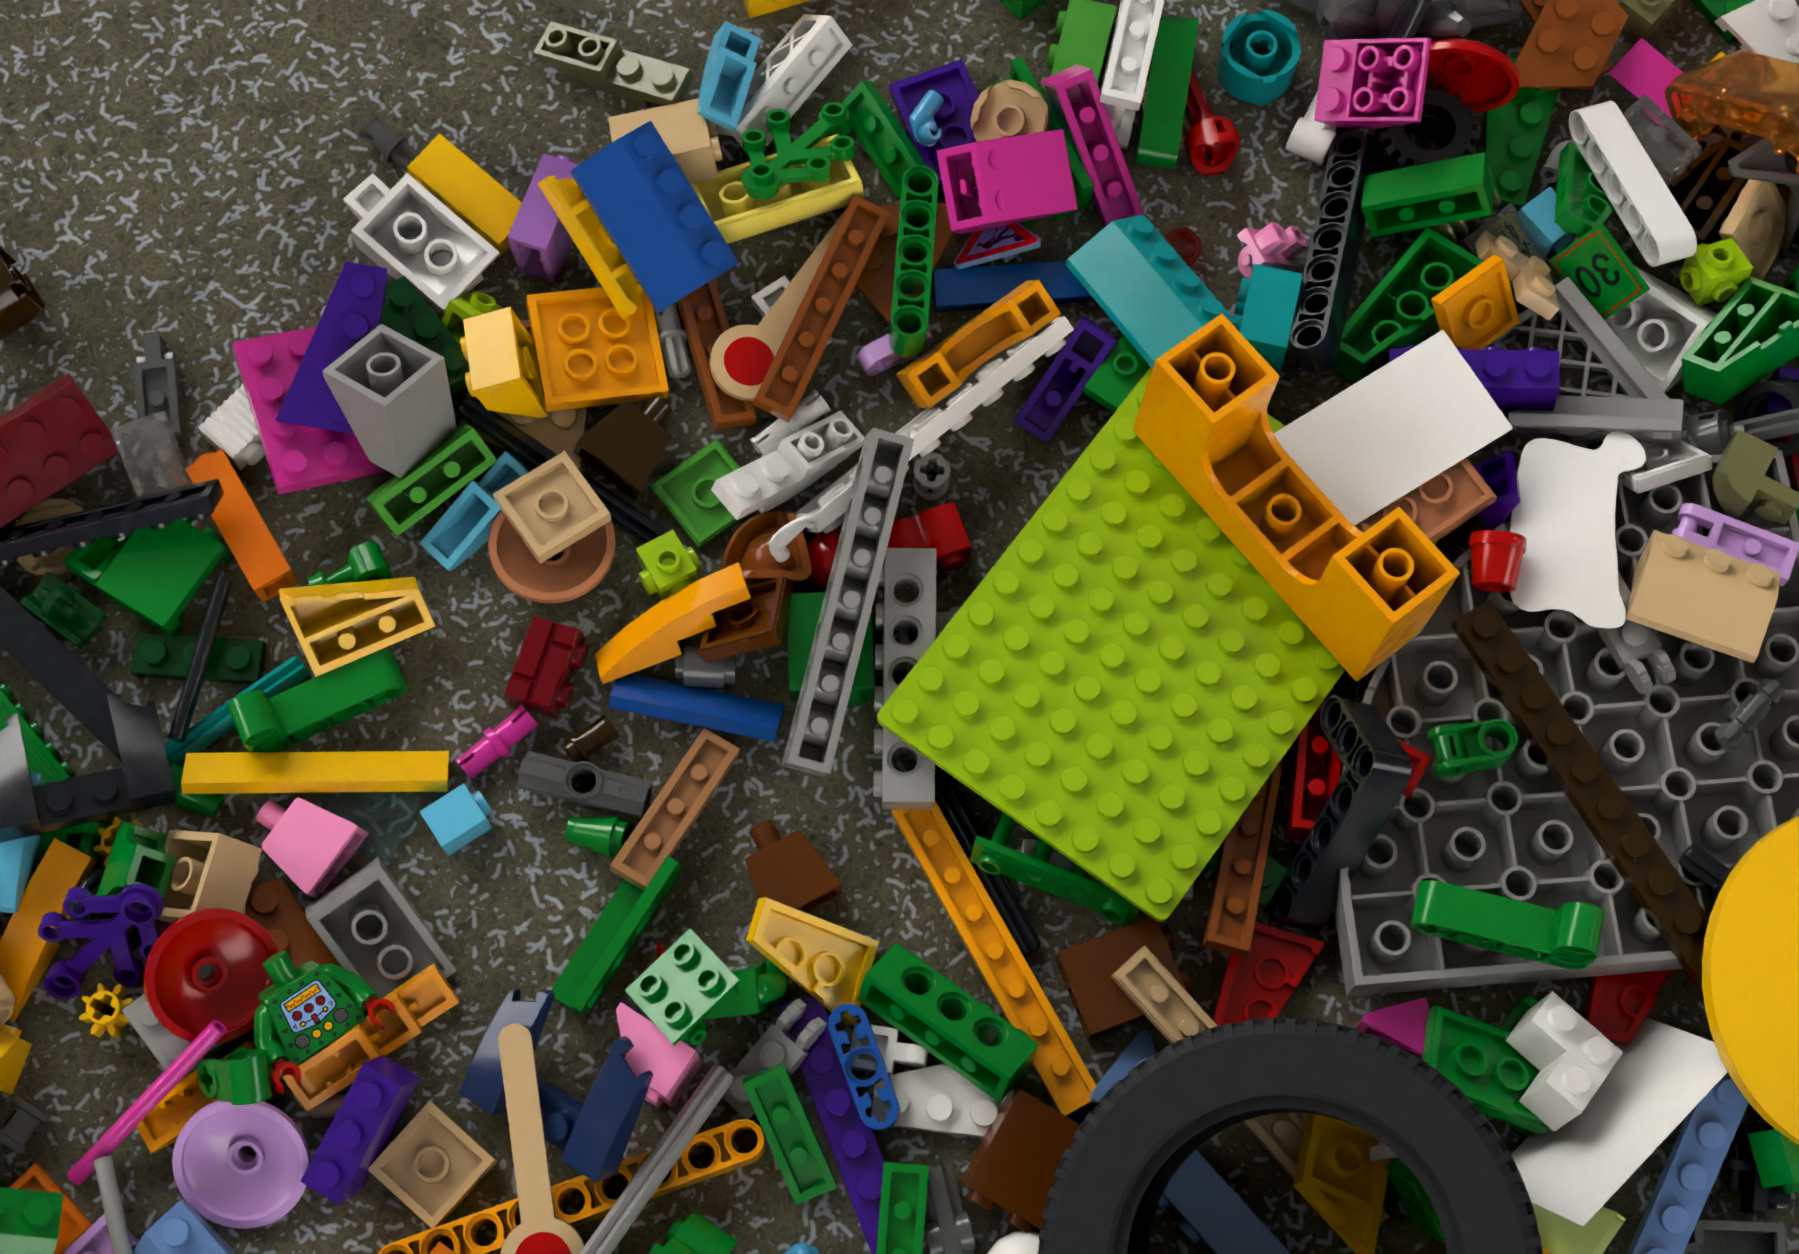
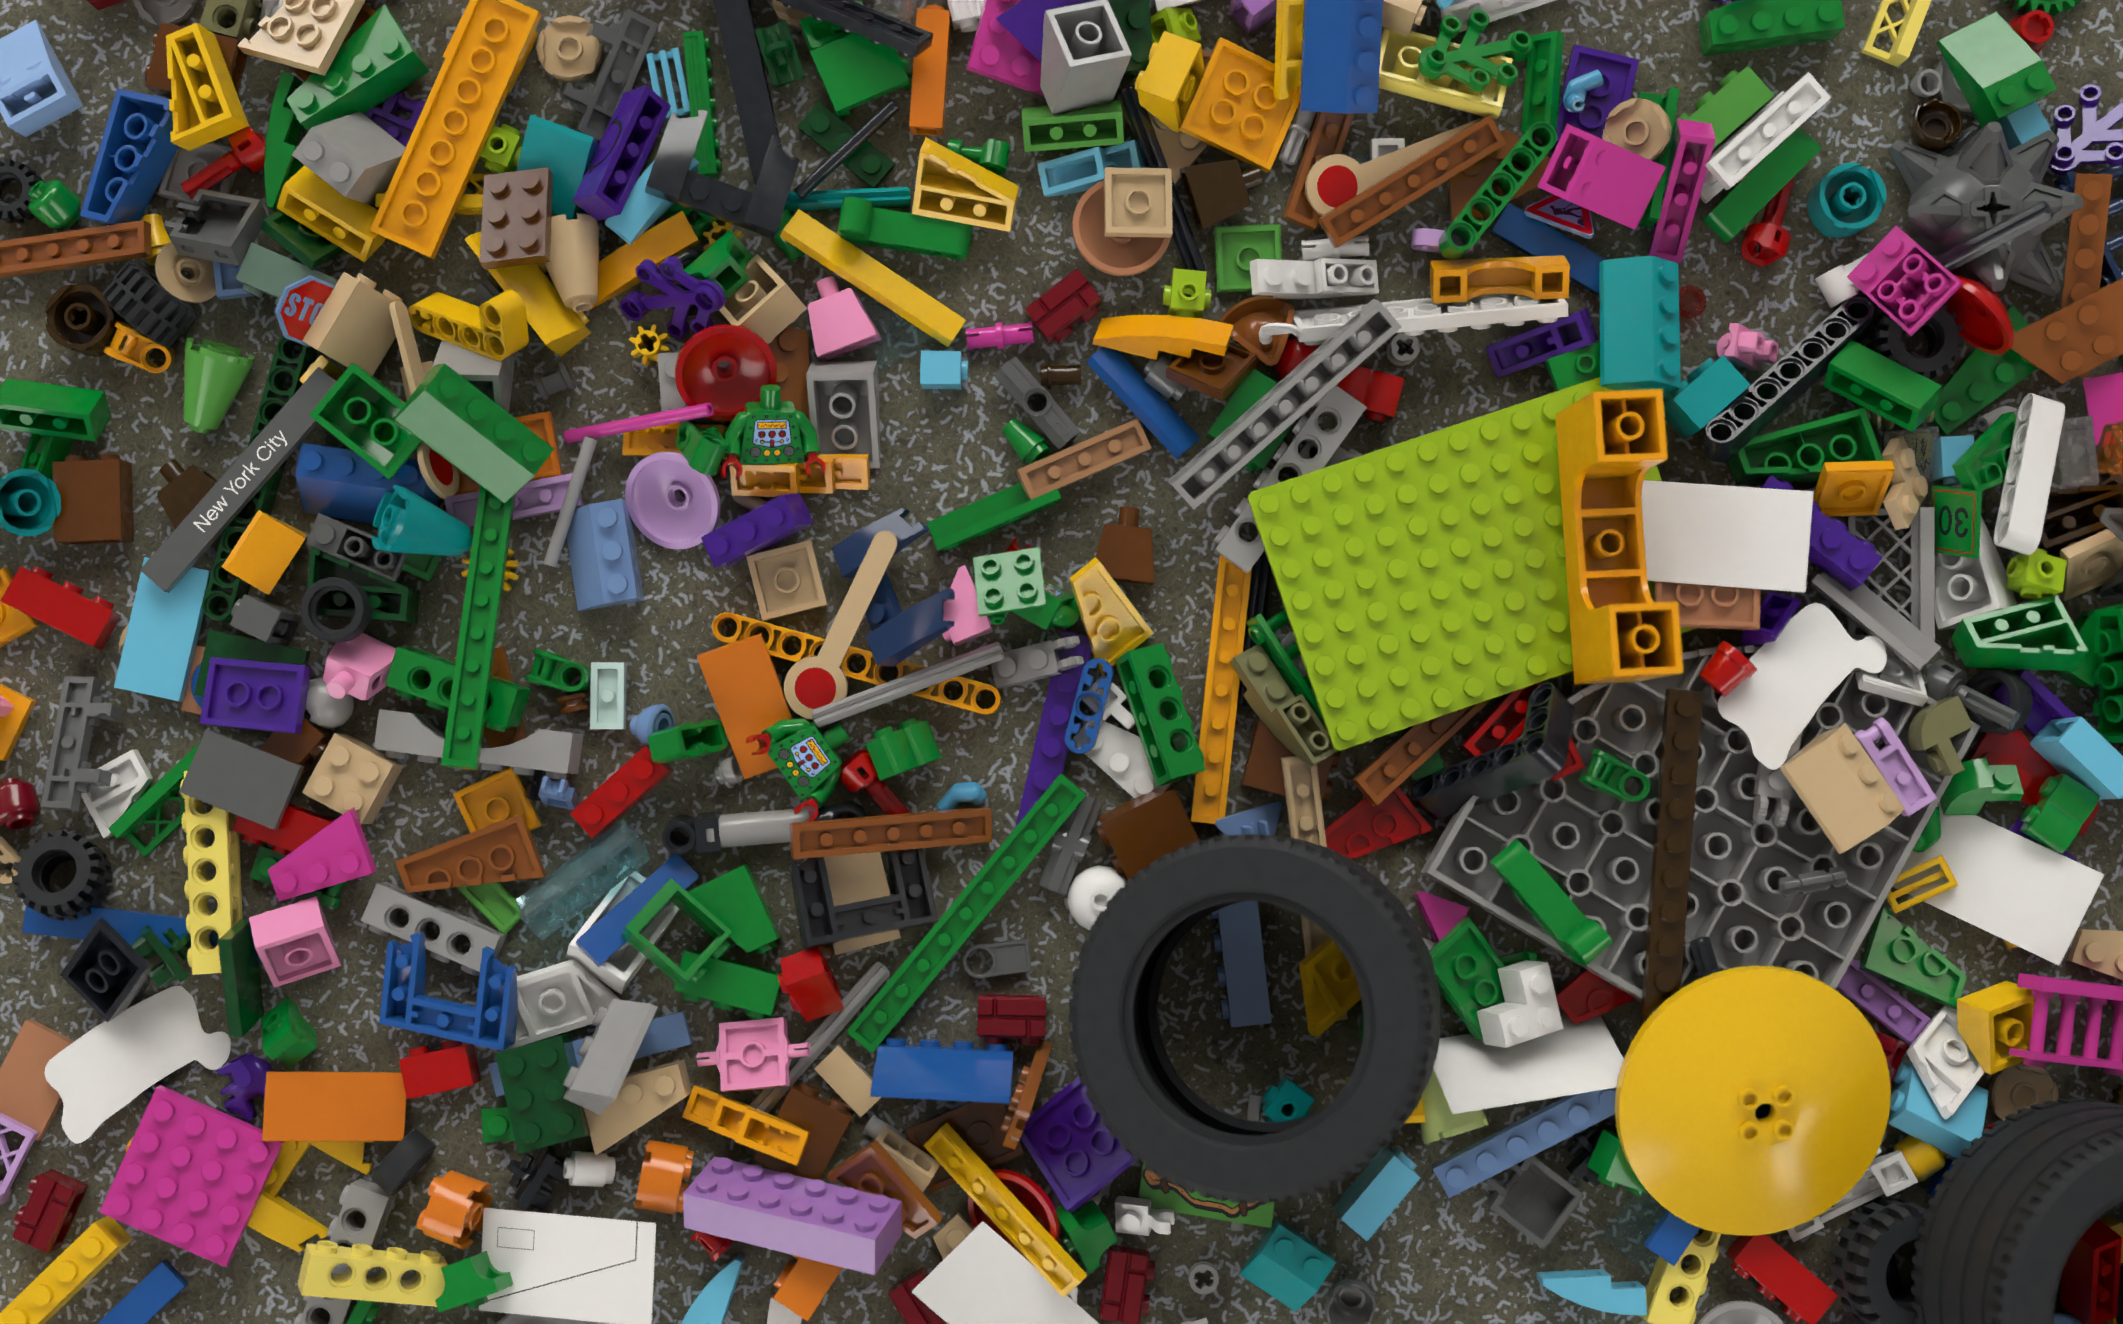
camera: 40 degrees right, 15 degrees up
(790, 1133) = (1016, 714): green plate -> none
(1079, 927) = (1283, 713): none -> olive slope

